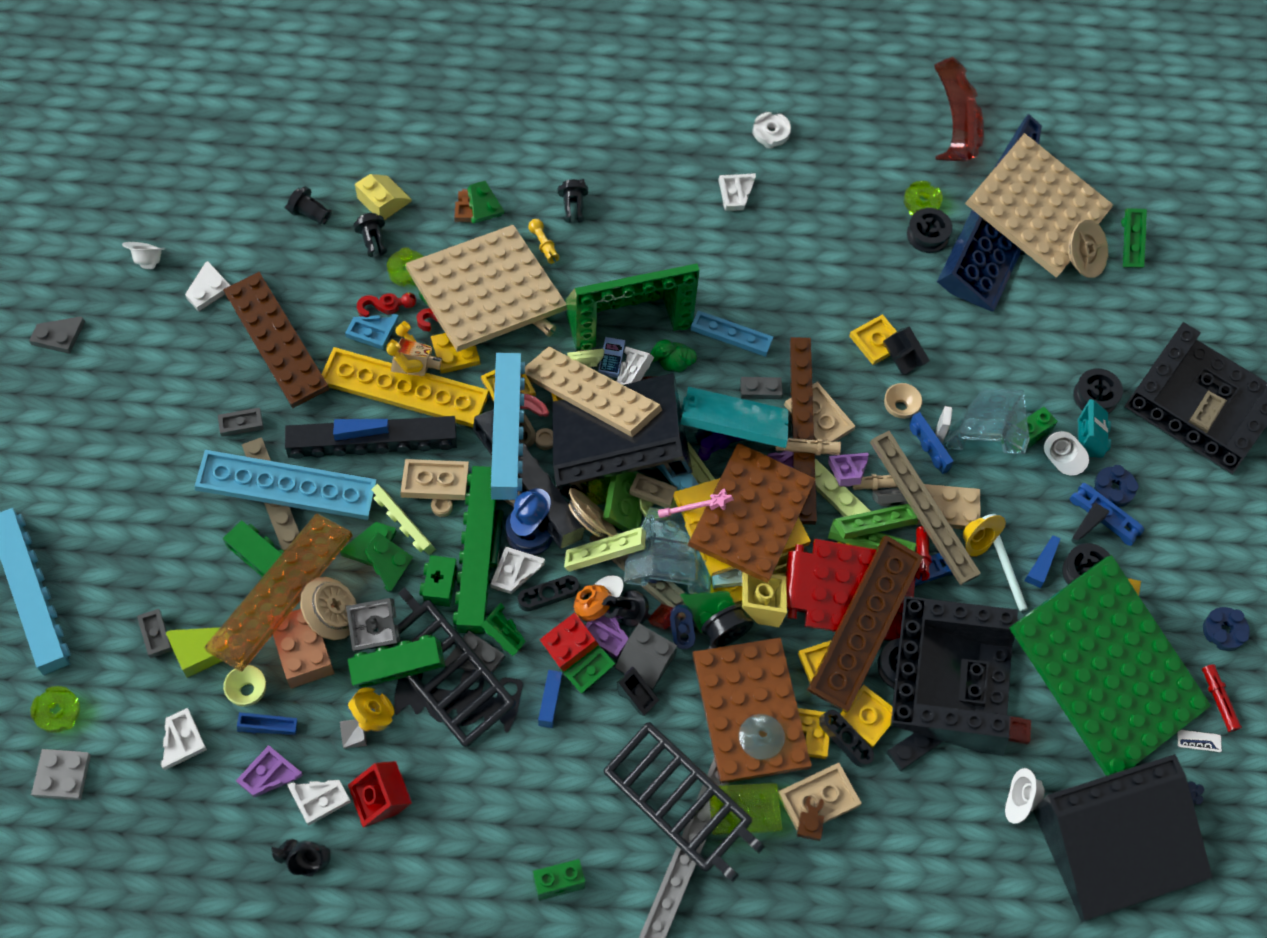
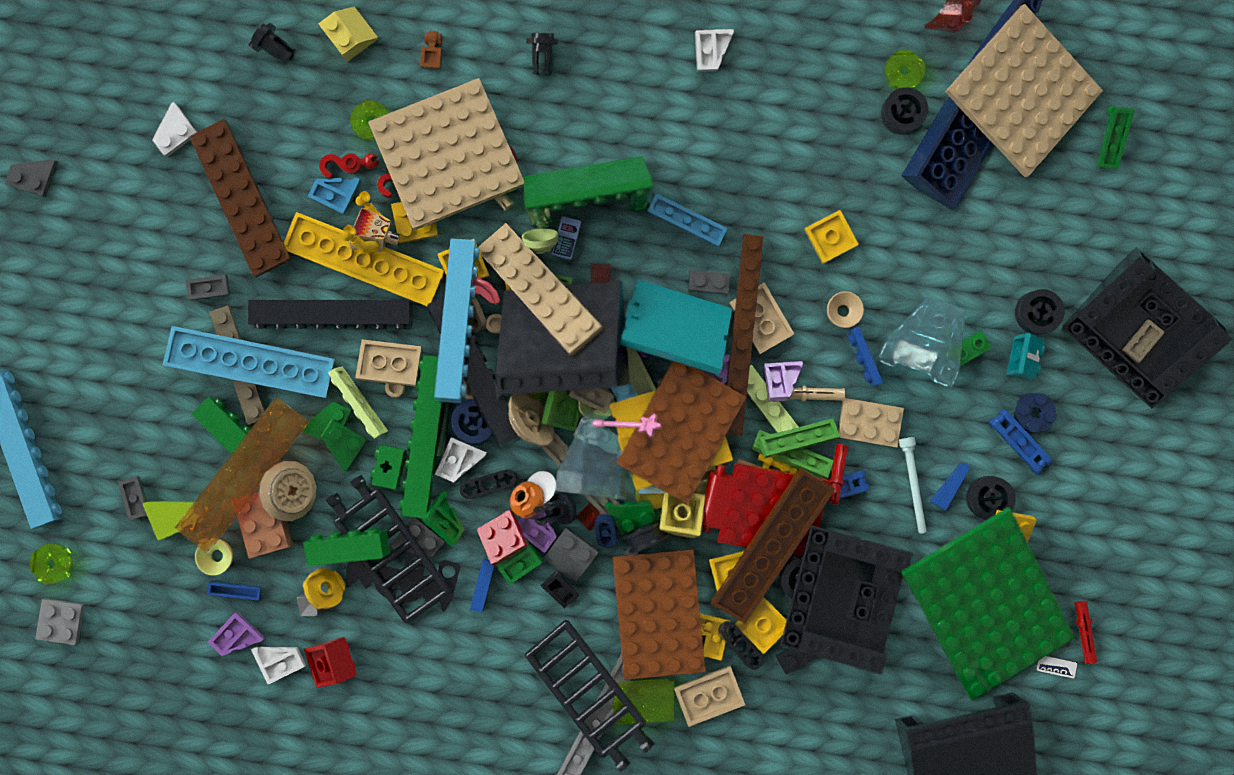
camera: 10 degrees right, 25 degrees up
(144, 254) = (109, 88): white piece -> none
(181, 739) = (160, 598): white wing -> none
(302, 857) = (262, 712): black hair -> none
(356, 428) = (310, 310): blue piece -> none
(362, 624) = (317, 513): piece -> none
(370, 226) = (333, 73): black piece -> none
(483, 202) = (449, 50): green wing -> none
(529, 511) = (473, 413): blue piece -> none
(547, 246) = (503, 79): yellow pin -> none
(558, 879) = (478, 750): green brick -> none
(605, 549) = (541, 455): yellowish green plate -> none
(635, 366) = (585, 255): white wing -> none
(673, 355) = (626, 243): green hair -> none
(758, 746) = (659, 635): clear light blue dish -> none
(811, 823) = (698, 720): reddish brown plate -> none
(812, 446) = (752, 362): tan pin -> none
(888, 496) = (822, 409): dark grey plate -> none
(905, 350) = (856, 254): black panel -> none
(925, 508) = (845, 431): dark tan plate -> none
(944, 423) = (879, 342): white tile -> none
(982, 533) = (894, 458): yellow piece -> none
(1020, 730) = (896, 647): clear red plate -> none
(1024, 796) = (888, 710): white piece -> none
(1066, 453) = (994, 377): white piece -> none
(1088, 248) = (1064, 149): tan piece -> none
(1093, 518) = (1002, 453): black slope -> none
(1196, 791) = (1040, 717): dark blue plant -> none
(1235, 620) = (1118, 561): dark blue plate -> none

